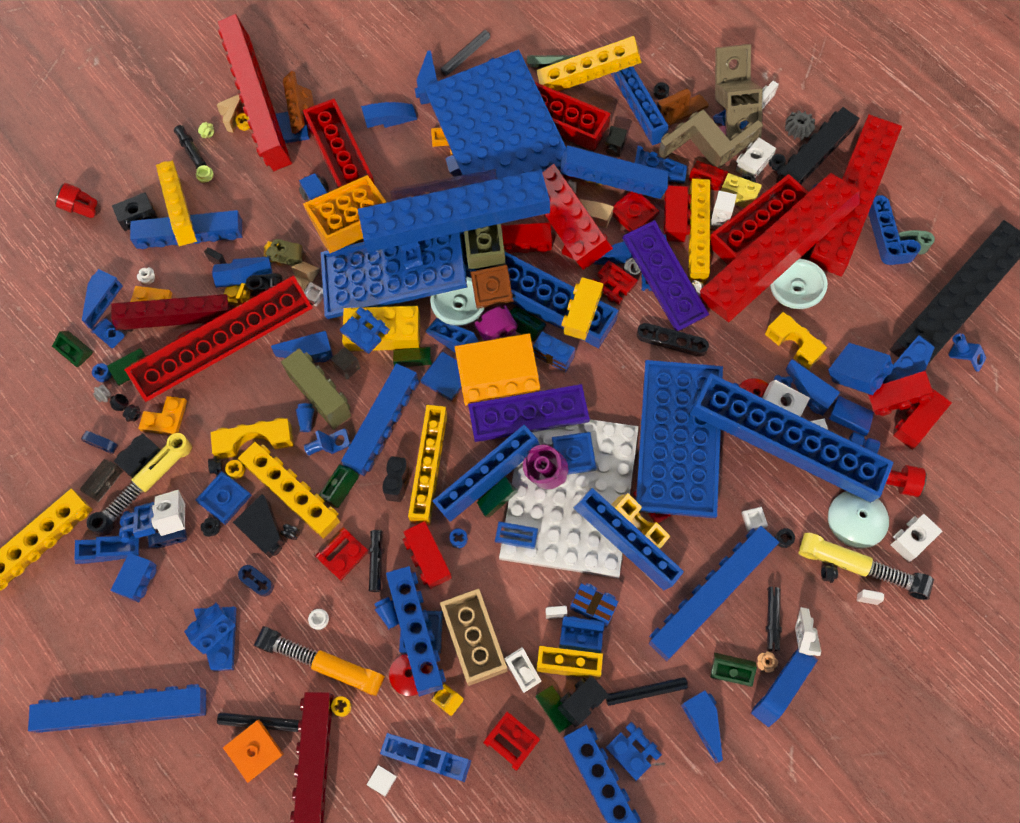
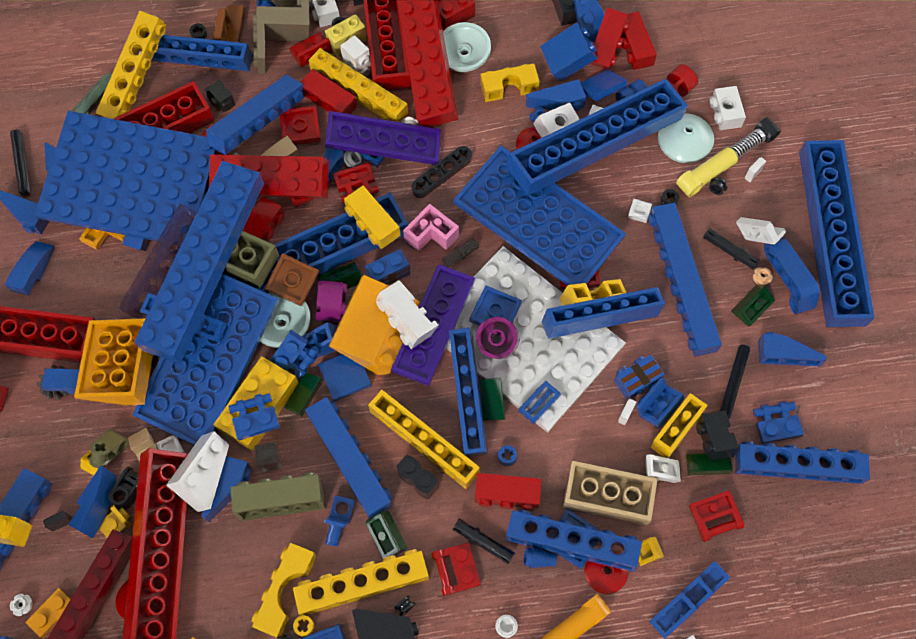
camera: 60 degrees left, 0 degrees up
(300, 322) = (200, 472): none -> white wedge
(305, 416) = (296, 526): blue cone -> none
(431, 323) = (290, 349): none -> blue plate
(514, 383) = (405, 314): none -> white wedge
(608, 397) = (460, 252): none -> clear smoke axle
(613, 358) = (431, 225): none -> bright pink brick
(675, 170) = (266, 79): blue wing -> none
(857, 705) = (836, 234): none -> blue brick

